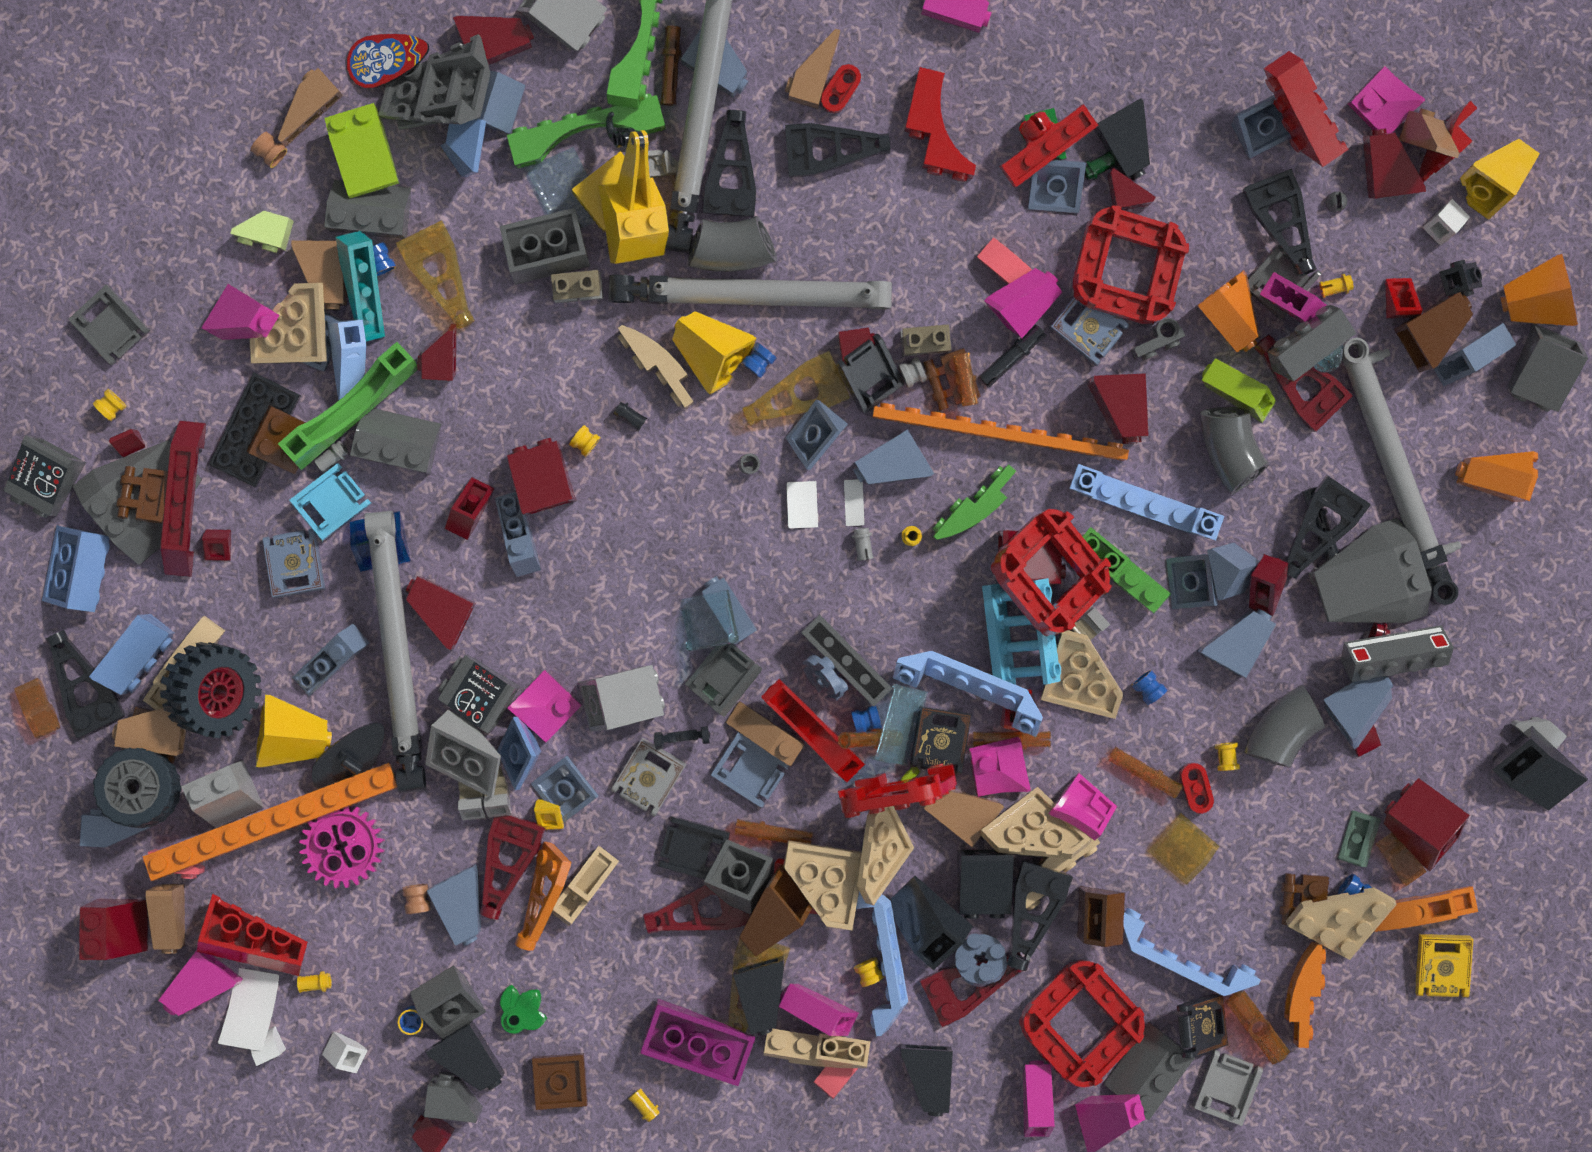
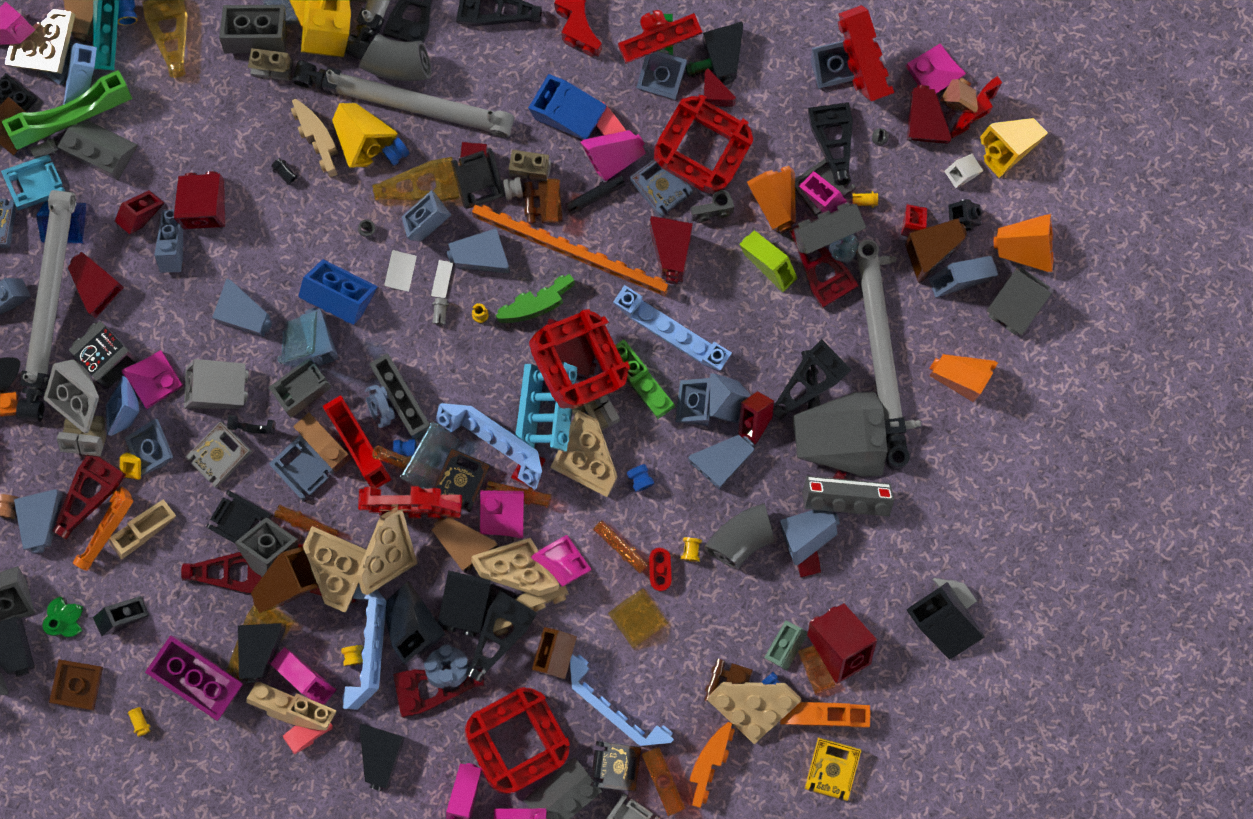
camera: 20 degrees right, 10 degrees down
(439, 356) = (150, 91): dark red slope -> none
(584, 441) = (243, 181): yellow wheel -> none
(589, 992) = (120, 615): none -> black slope
(627, 601) = (240, 311): none -> sand blue slope
(735, 549) = (337, 291): none -> blue slope
(955, 258) = (566, 107): none -> blue slope
(1232, 446) = (752, 304): dark grey brick -> none

